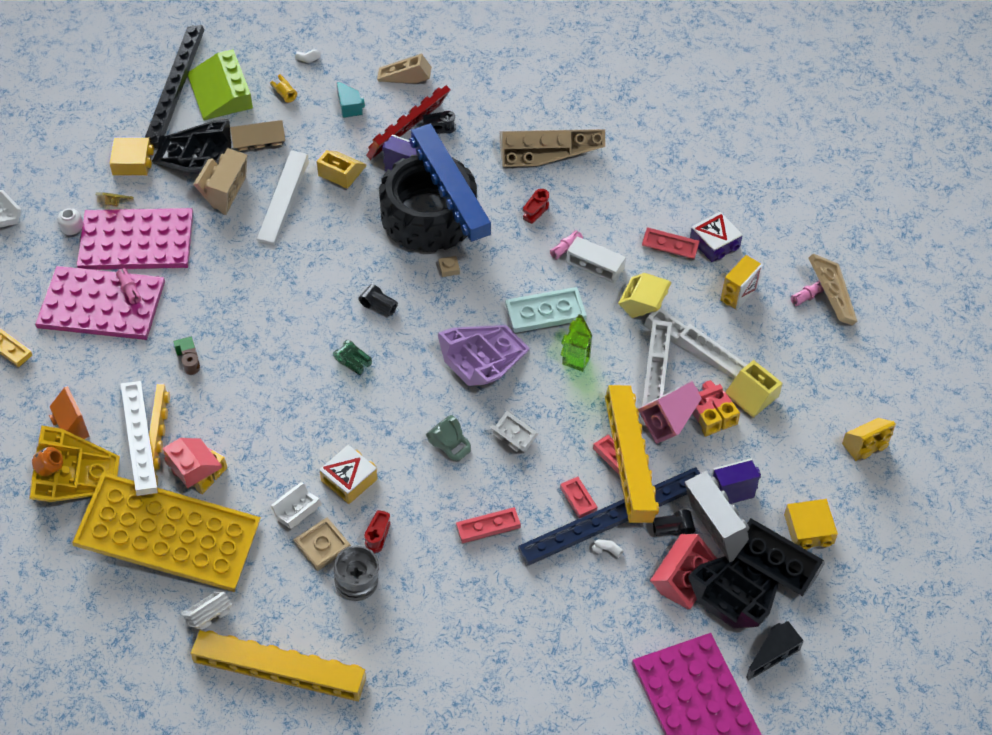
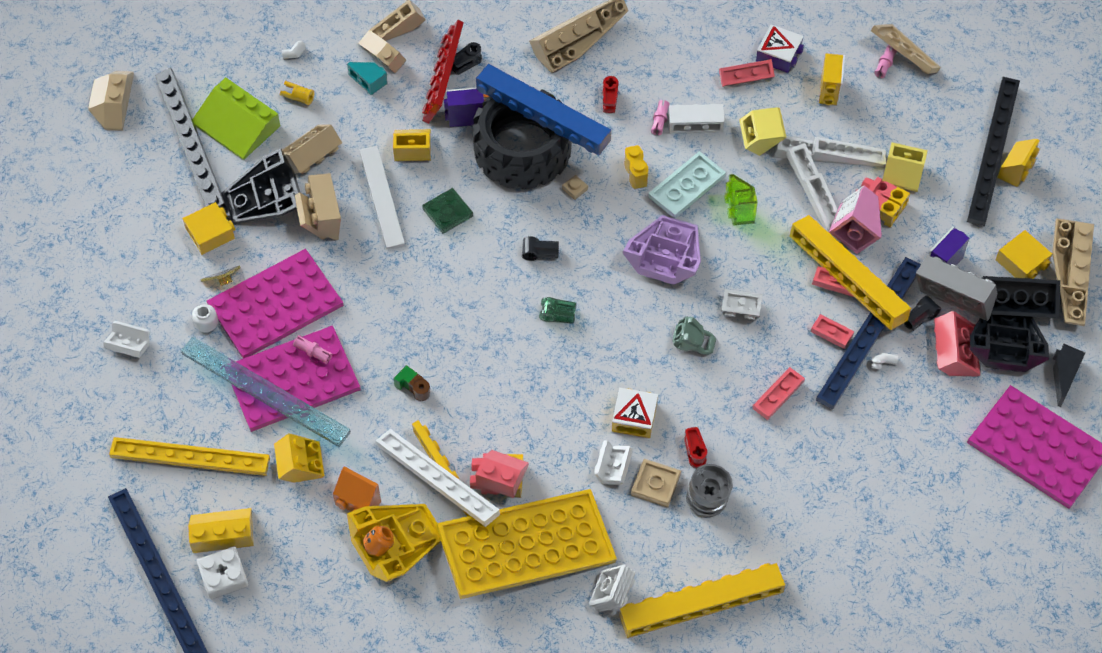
camera: 30 degrees left, 5 degrees up
(51, 366) = (298, 459): none -> yellow slope
(66, 301) = (266, 392): none -> clear light blue plate
(142, 29) = (111, 98): none -> tan wedge
(329, 234) = (447, 210): none -> clear green plate
(375, 88) = (382, 51): none -> tan slope
(511, 273) = (636, 167): none -> yellow brick
(851, 556) = (1072, 265): none -> tan wedge
(852, 417) = (993, 151): none -> black plate

